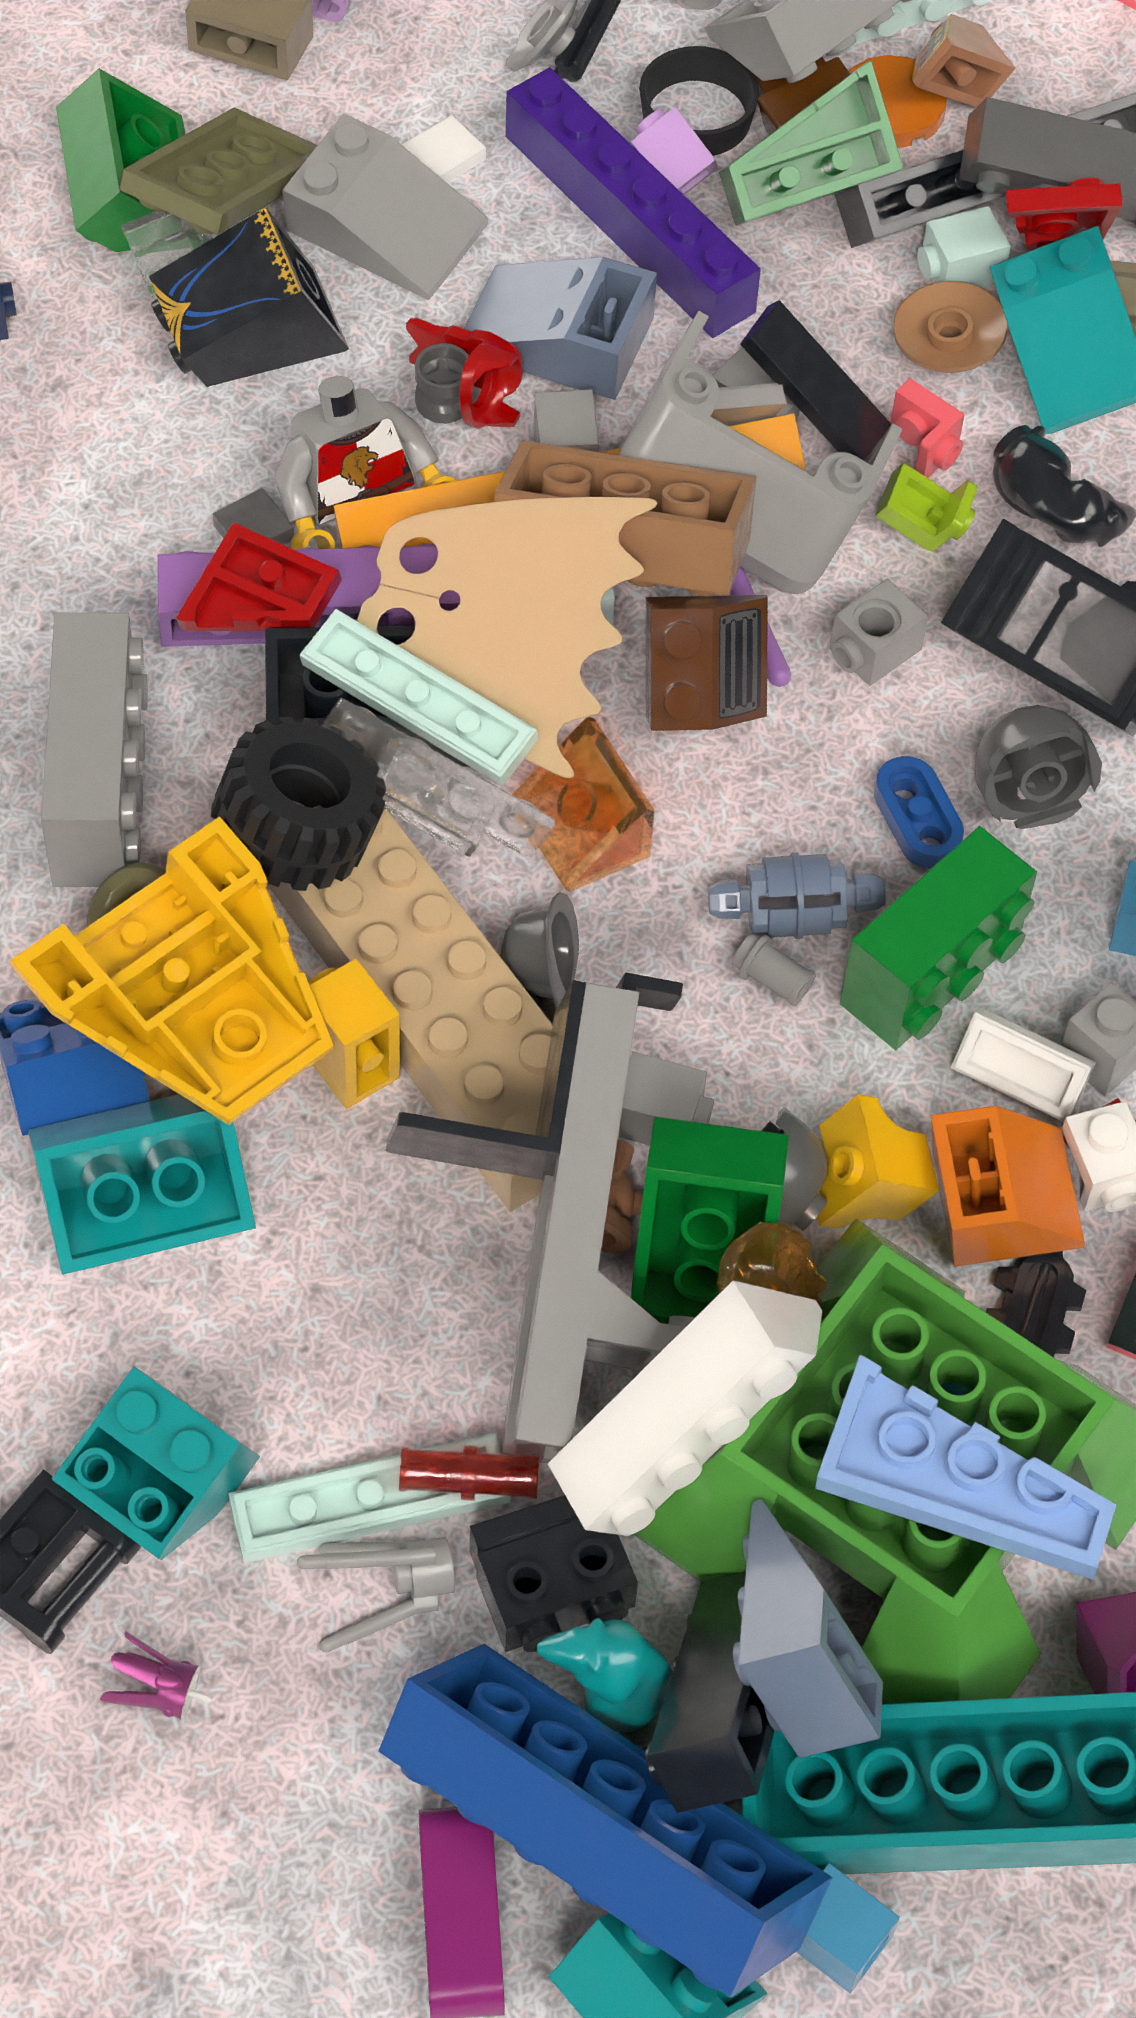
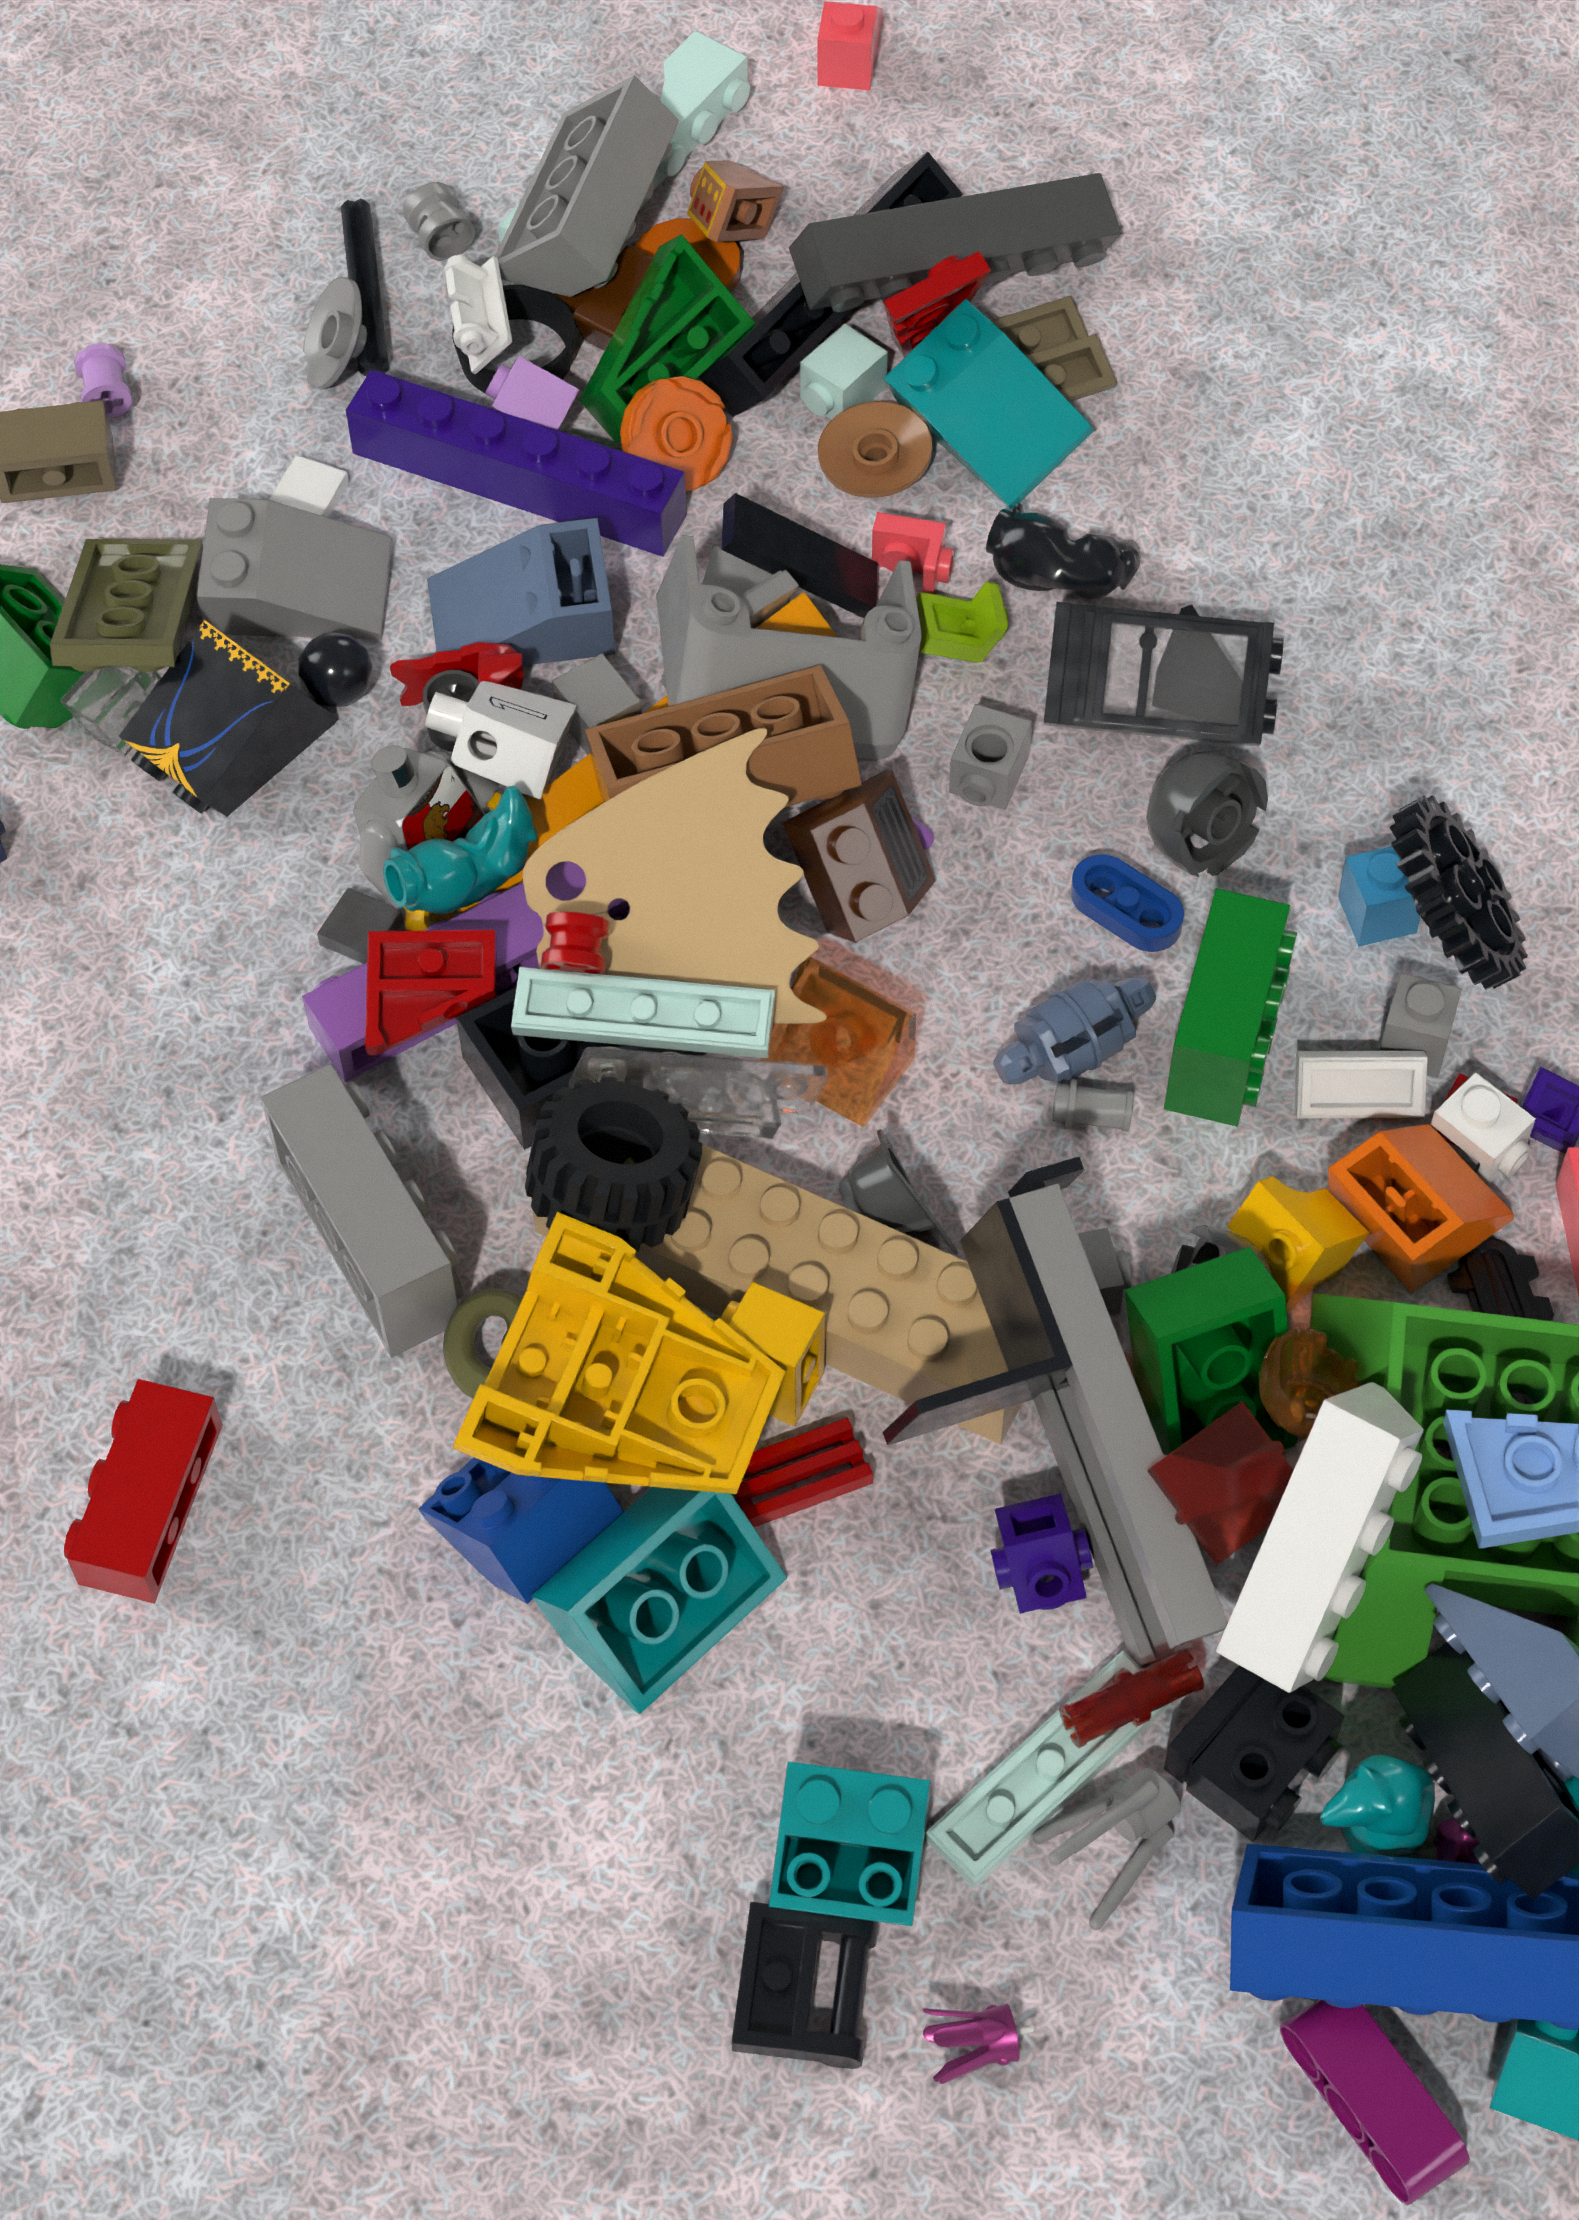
camera: 25 degrees left, 0 degrees up
(325, 1125) = (811, 1494): none -> red tile
(342, 513) = (452, 875): none -> teal animal
(365, 304) = (335, 669): none -> black piece
(390, 609) = (575, 942): none -> red wheel
(461, 418) = (505, 734): none -> white torso
(469, 1313) = (1040, 1554): none -> dark purple brick
(633, 1317) = (1225, 1482): none -> clear red piece
(670, 55) = (478, 309): none -> white hinge
(784, 232) = (680, 427): none -> orange tile

